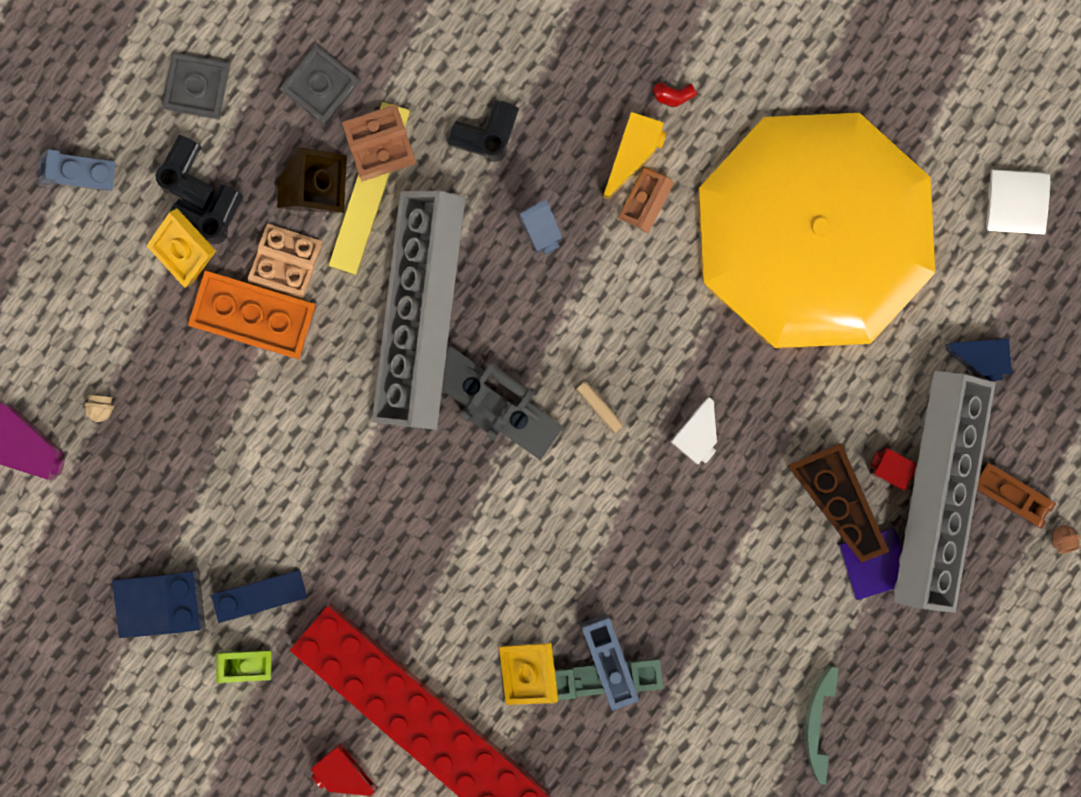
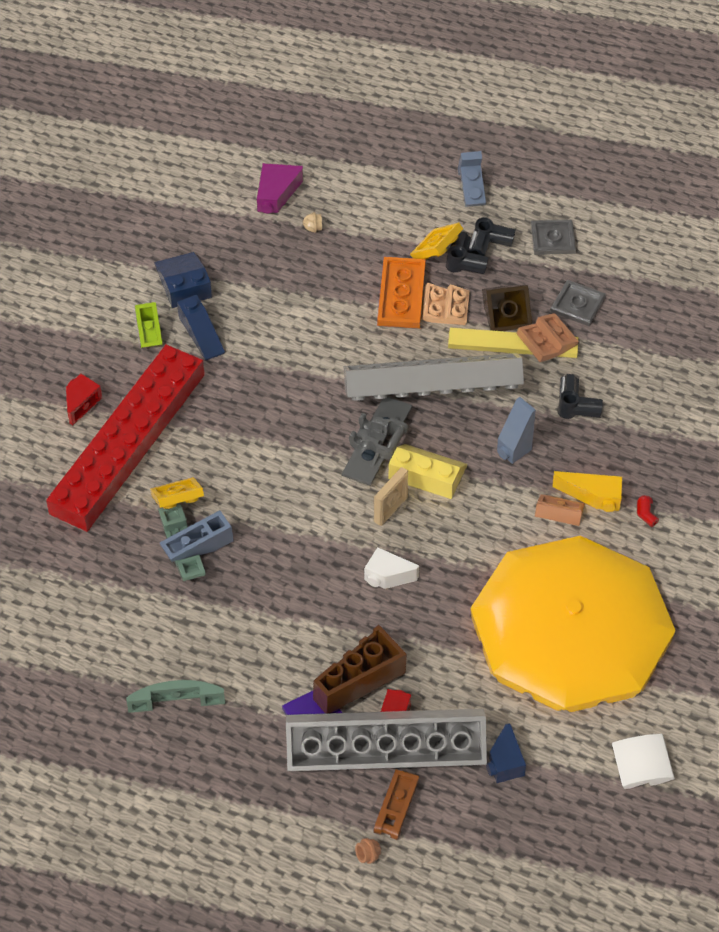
camera: 80 degrees right, 35 degrees down
(552, 348) = (427, 470): none -> light yellow slope

